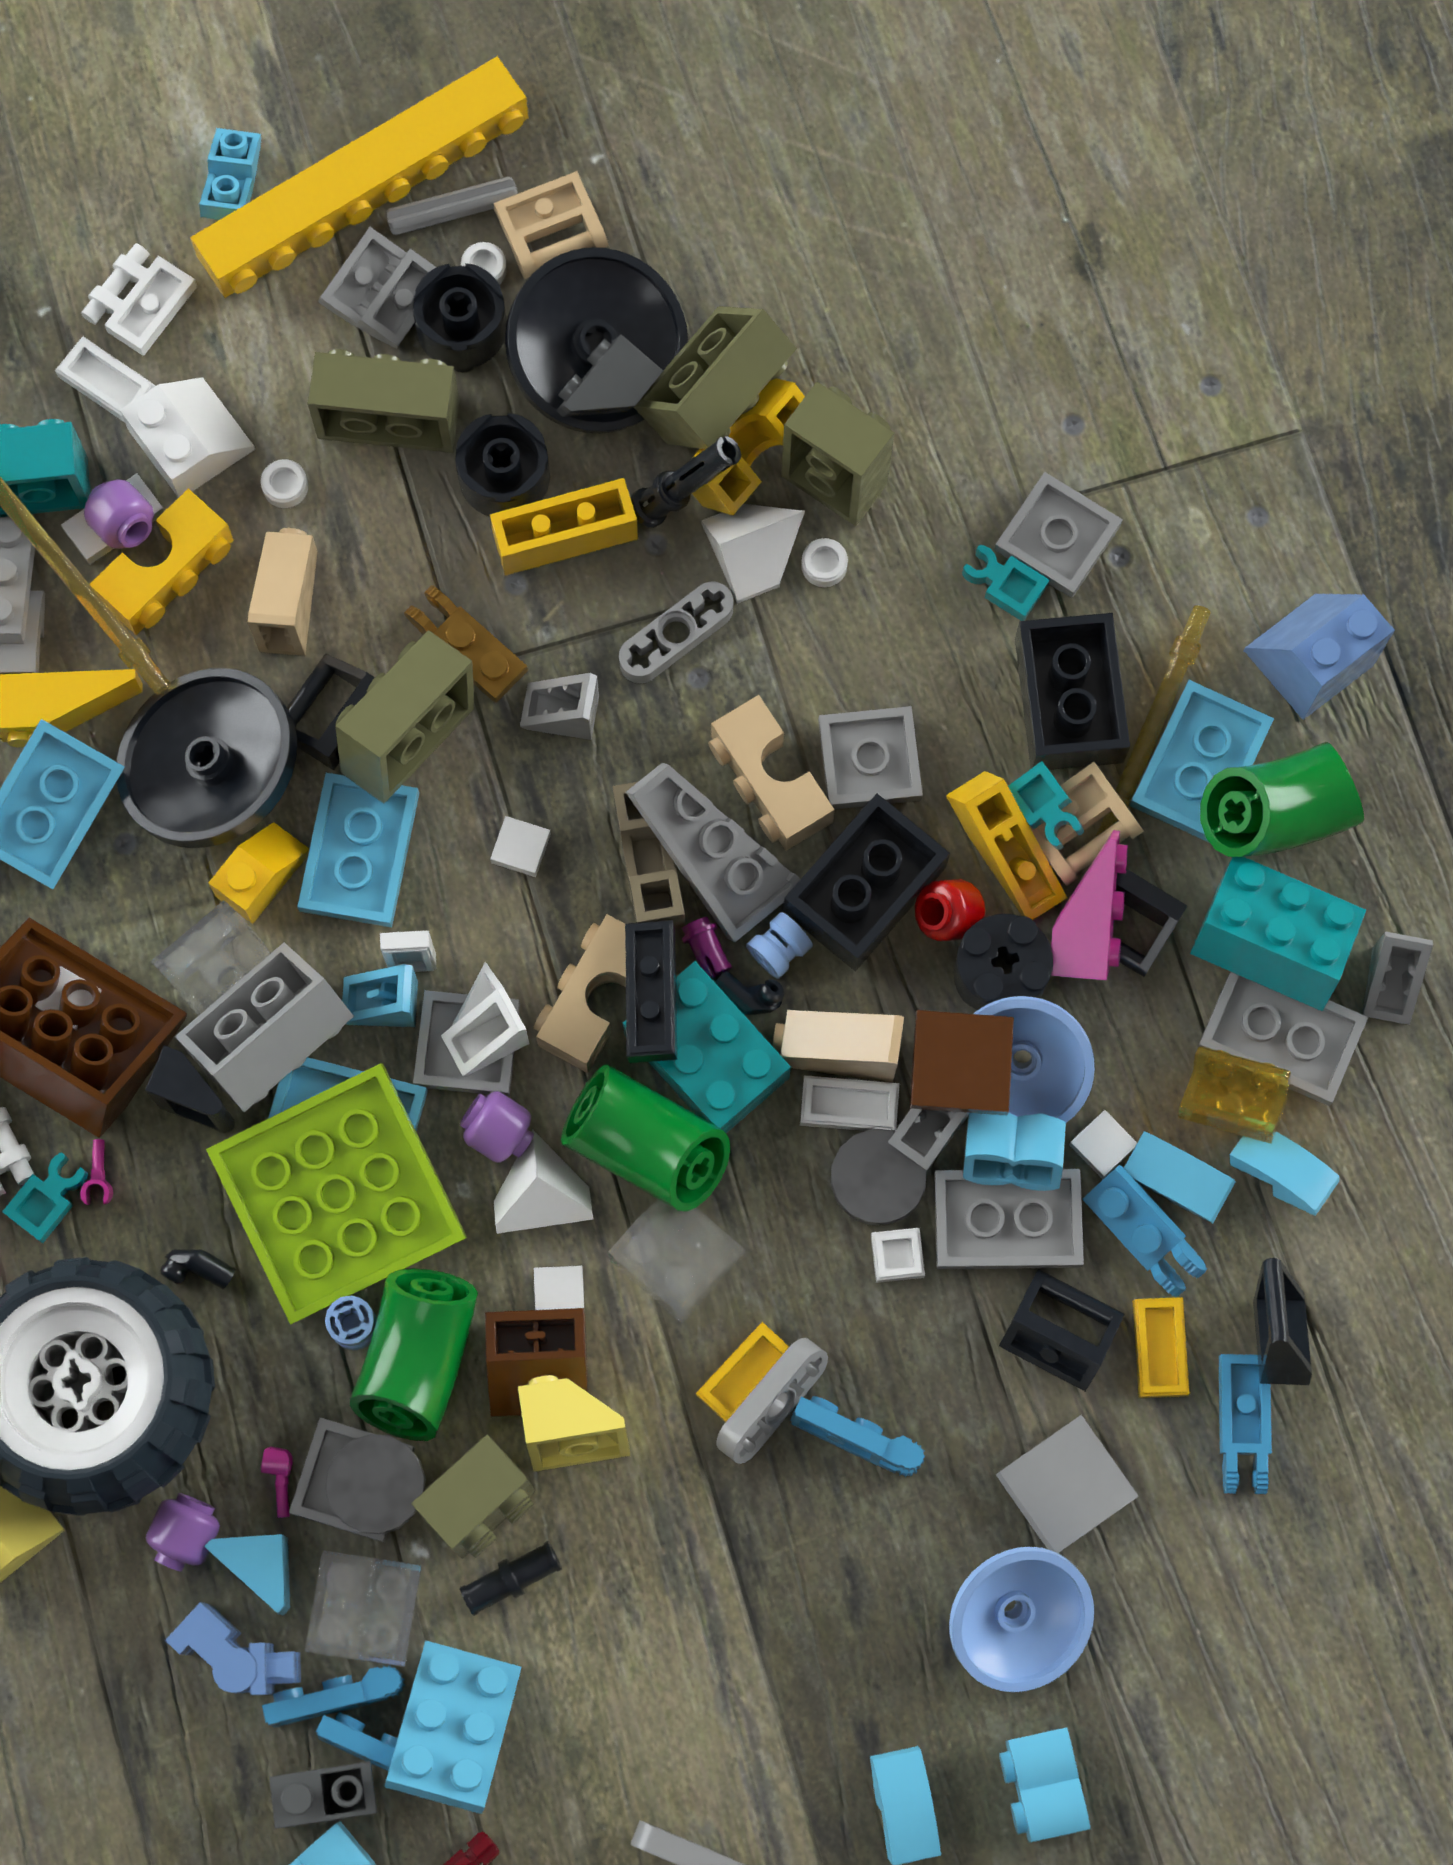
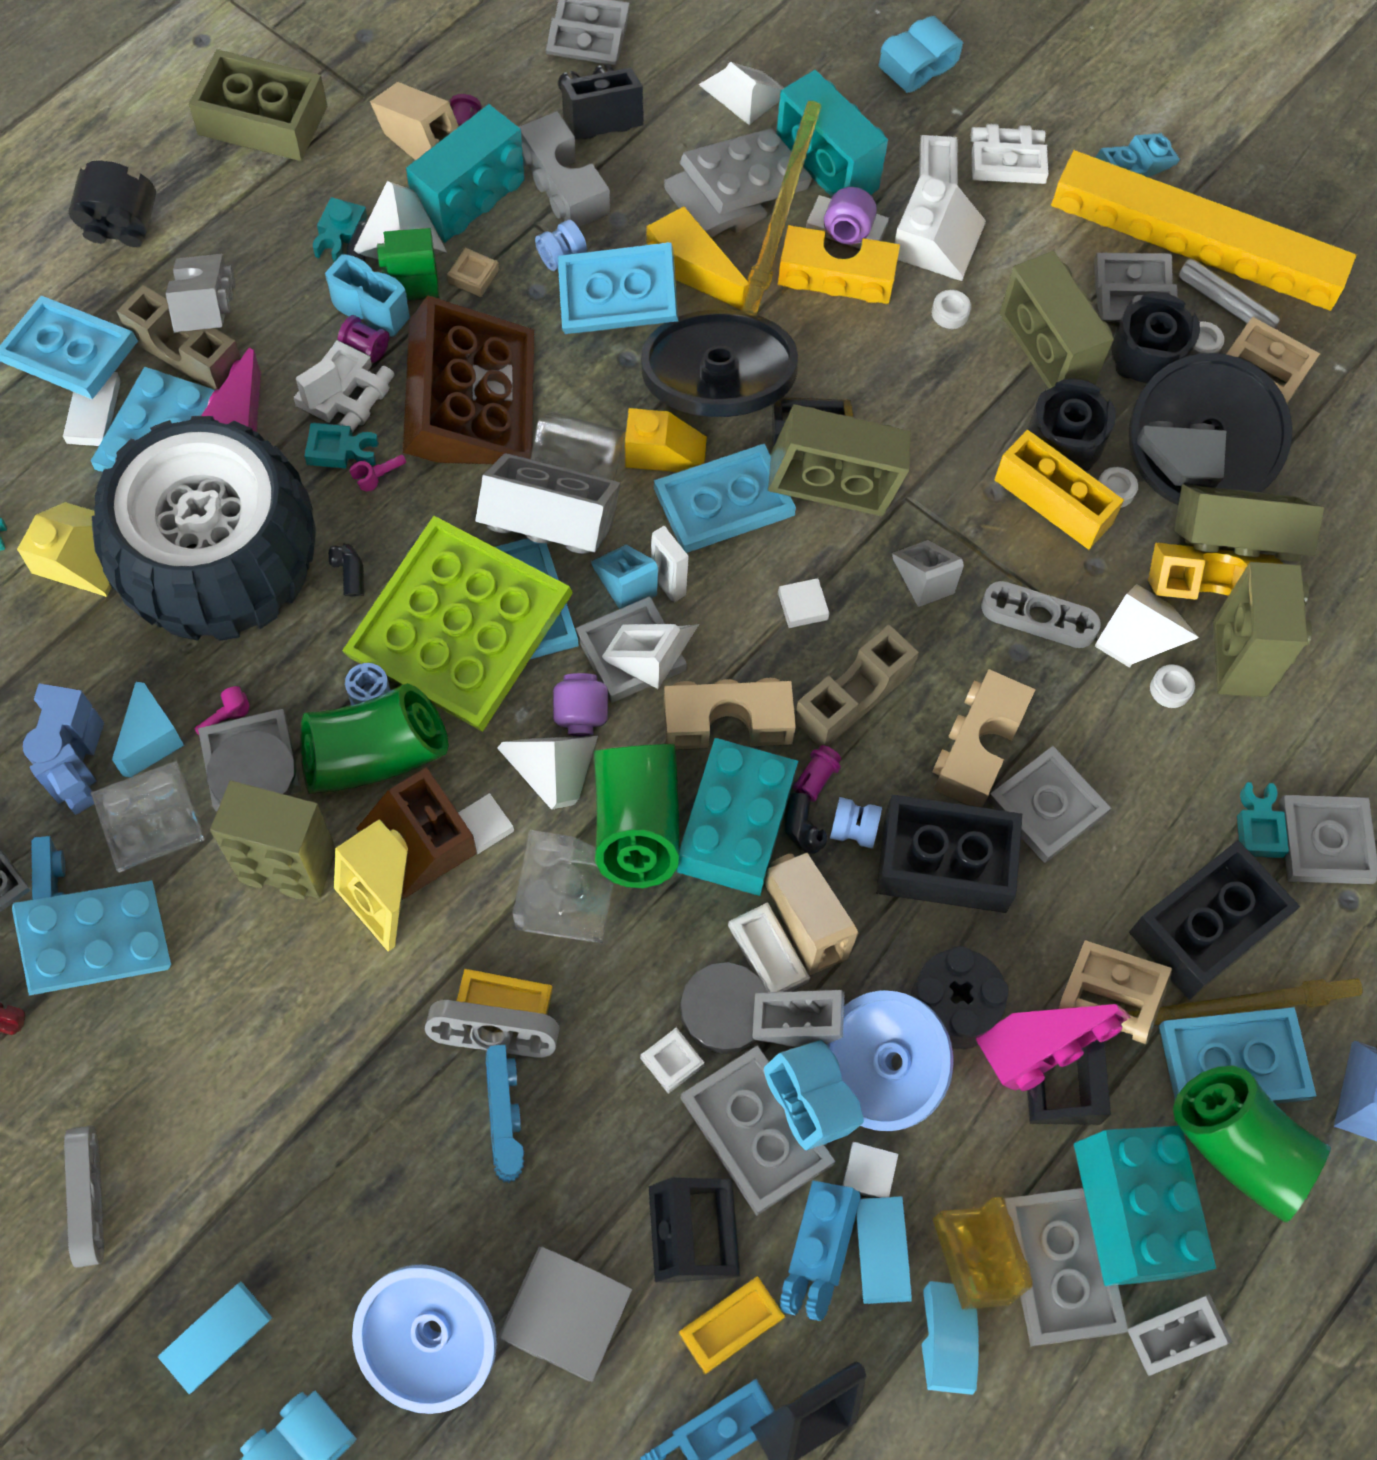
camera: 55 degrees right, 10 degrees down
(182, 1531) = (142, 661): medium lavender head -> none
(183, 1091) = (467, 464): black tile -> none
(283, 592) = (871, 344): tan slope -> none
(337, 1696) = (75, 843): dark azure hinge -> none
(493, 663) = (925, 487): pearl gold hinge -> none
(510, 1578) = (237, 916): black pin -> none
(588, 464) = (1120, 482): none -> white tile
(651, 991) = (750, 740): black tile -> none
(674, 488) = (1142, 541): black pin -> none
(721, 862) = (890, 726): light grey wing -> none
(948, 909) = (974, 926): red head -> none
(962, 1062) = (853, 1003): reddish brown tile -> none
(1007, 843) = (1056, 946): yellow slope -> none
(1041, 801) = (1109, 945): teal plate -> none

